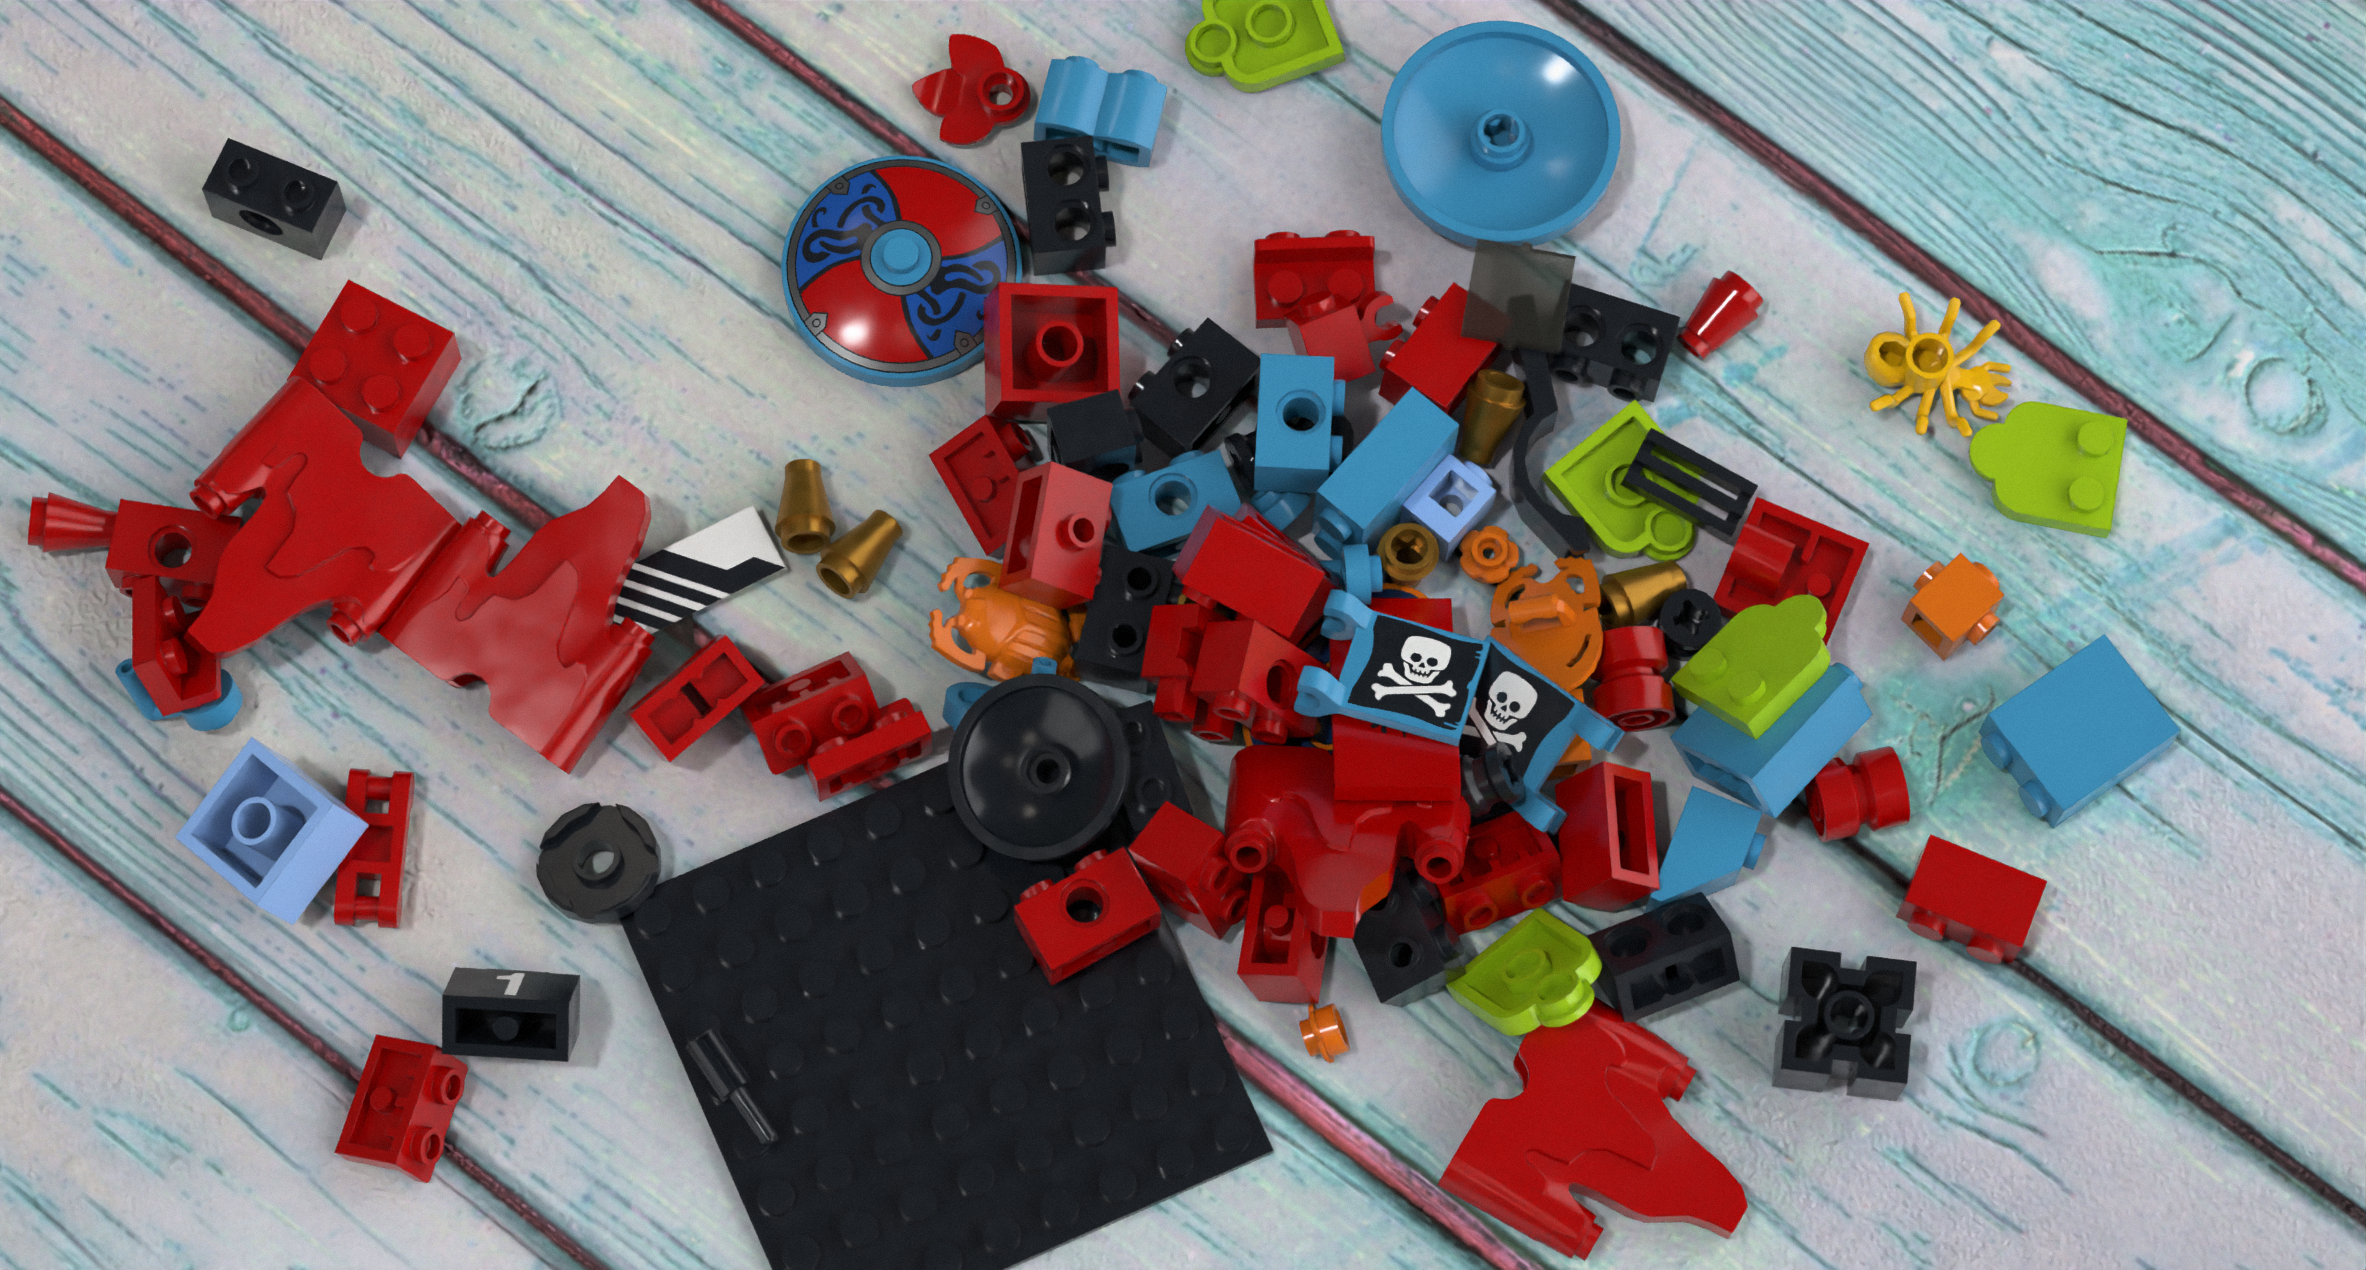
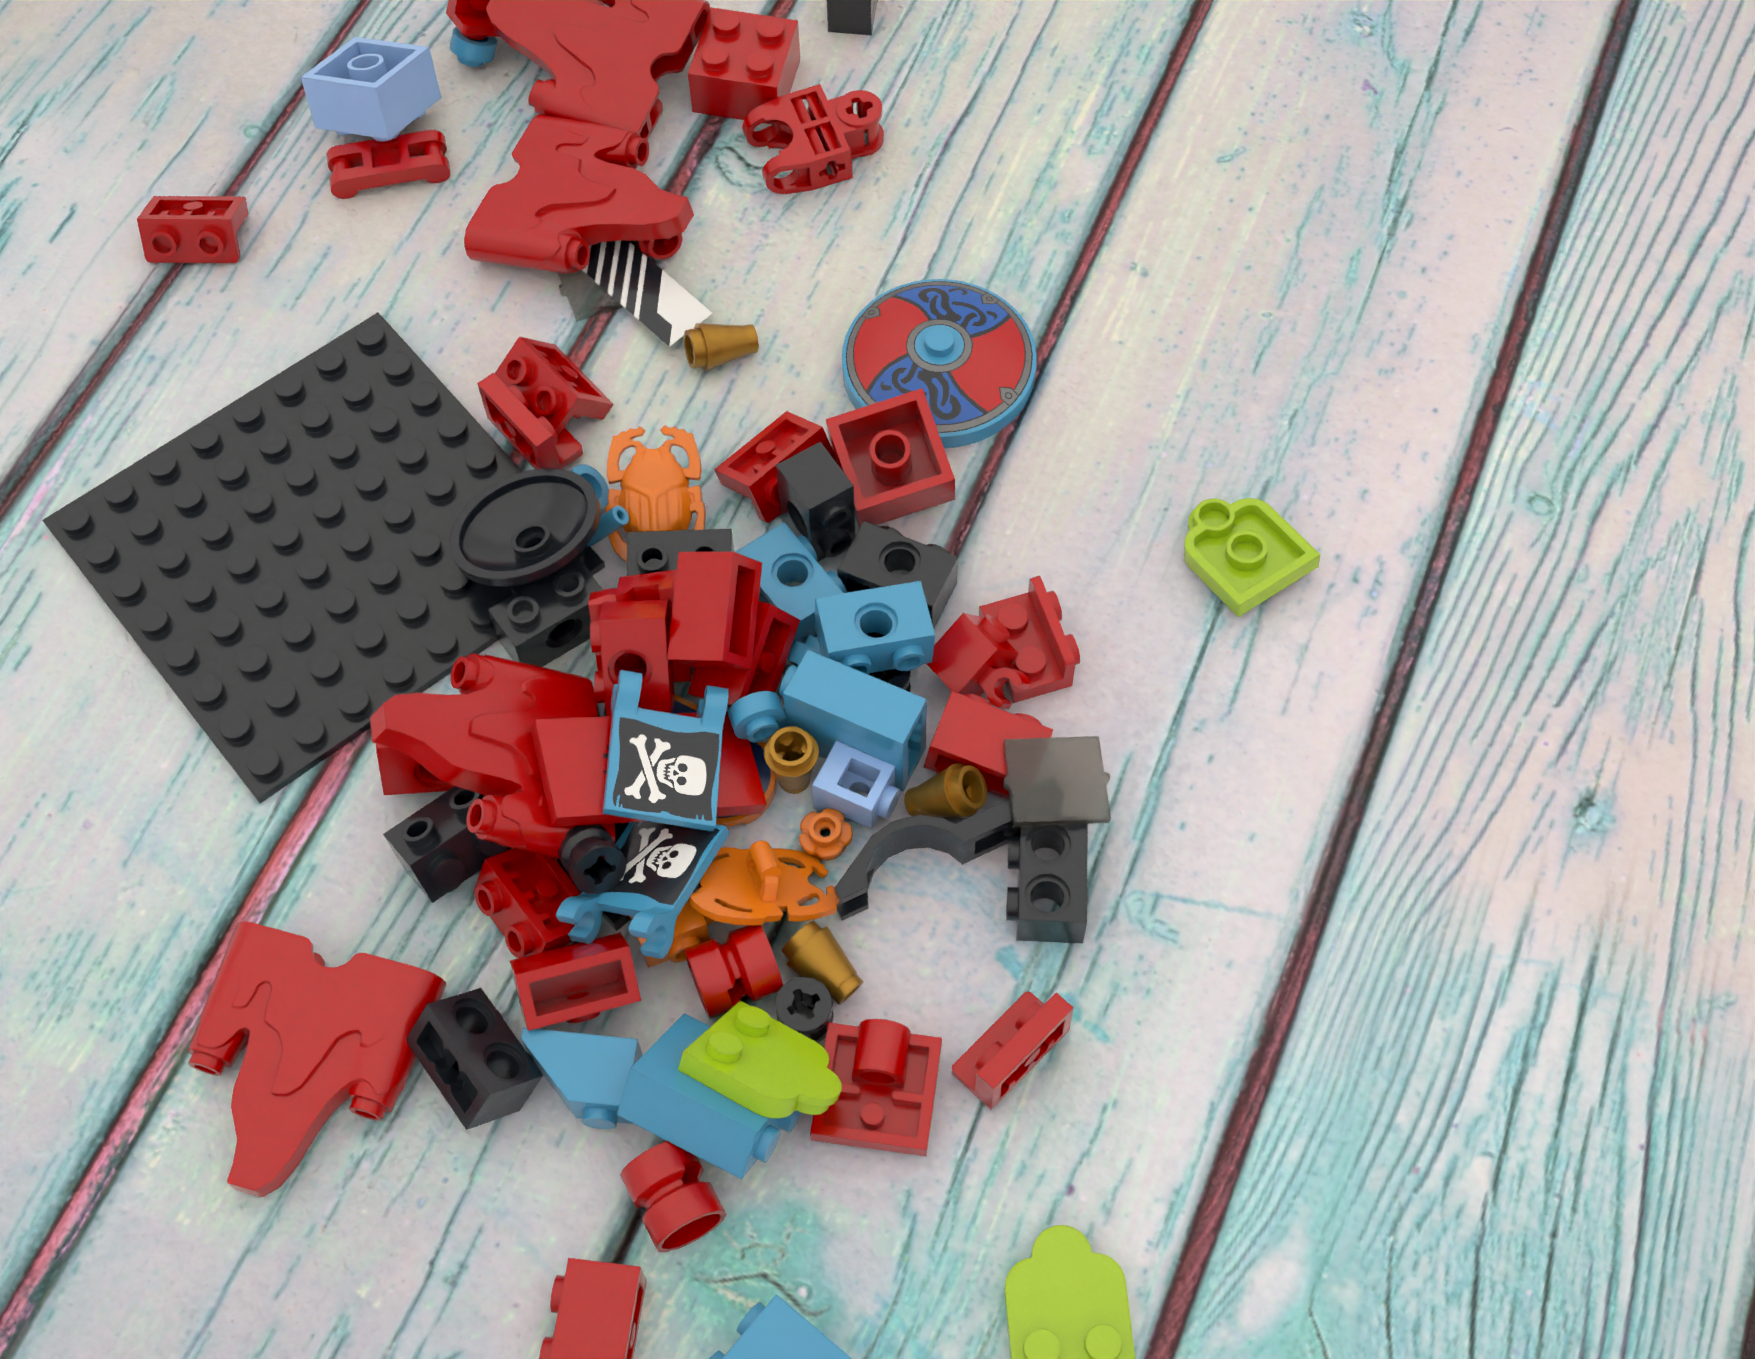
camera: 80 degrees right, 10 degrees down
(511, 1014) = (266, 260): black brick -> none
(517, 312) = (815, 136): none -> red piece
(609, 893) = (404, 311): black tile -> none
(694, 697) = (538, 305): red brick -> none
(730, 1081) = (240, 405): black axle -> none
(857, 556) = (691, 388): pearl gold cone -> none
(965, 91) = (1105, 366): red plate -> none
(1056, 536) = (724, 490): red brick -> none
(1057, 205) = (1024, 438): black brick -> none
(1068, 945) = (427, 624): red brick -> none
(1114, 108) = (1120, 451): dark azure brick -> none
(1190, 870) = (460, 630): red brick -> none
(1324, 1032) = (362, 810): orange plate -> none
(1500, 134) = (1209, 741): dark azure dish -> none
(1530, 977) = (430, 948): lime plate -> none
(1613, 515) = (921, 933): lime plate -> none
(1698, 464) = (941, 928): black tile -> none
(1720, 314) = (1112, 968): red cone -> none
(1783, 431) = (1013, 1046): none -> red bracket
(1874, 1000) = (411, 1210): black brick -> none
(1929, 363) = (1123, 1164): yellow animal -> none
(1954, 605) = (889, 1245): orange brick -> none

